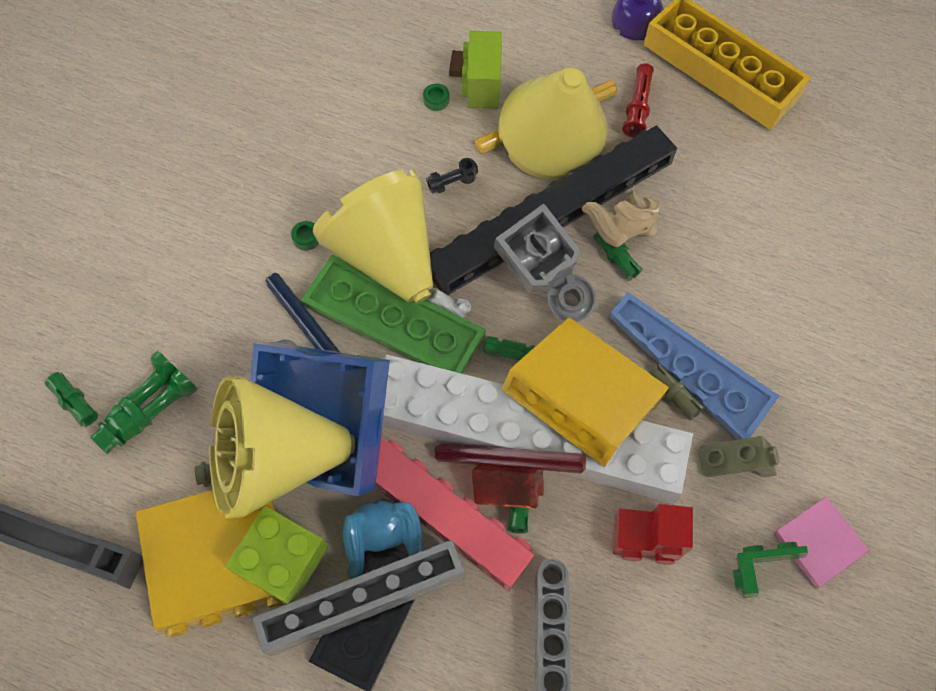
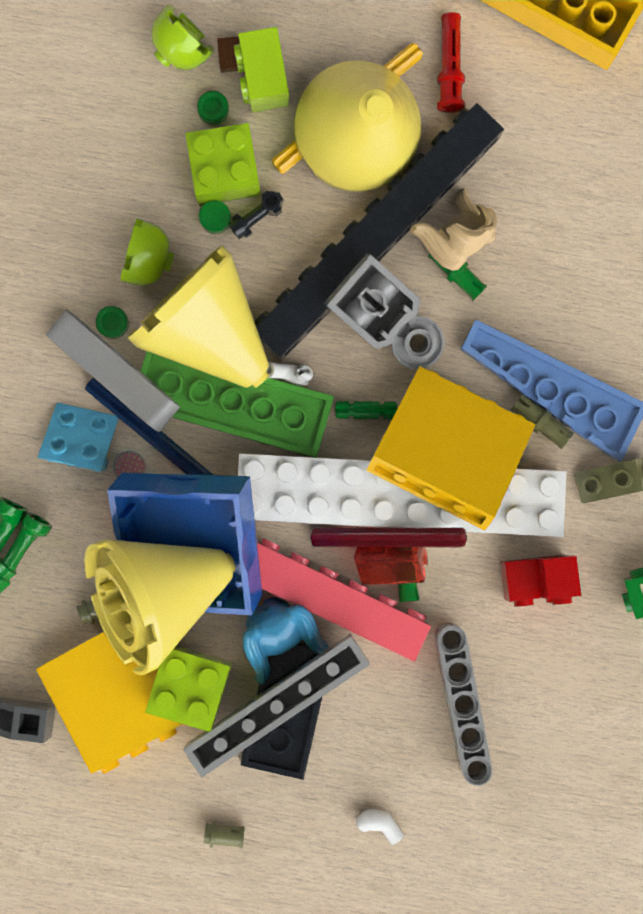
camera: 15 degrees left, 20 degrees up
(245, 319) = (78, 437): none -> medium azure hinge
(294, 267) = (113, 371): none -> light grey beam
(349, 174) = (146, 254): none -> lime cylinder
(420, 42) = (178, 41): none -> lime cylinder
(420, 167) = (214, 217): none -> green tile
(433, 133) = (223, 164): none -> lime brick

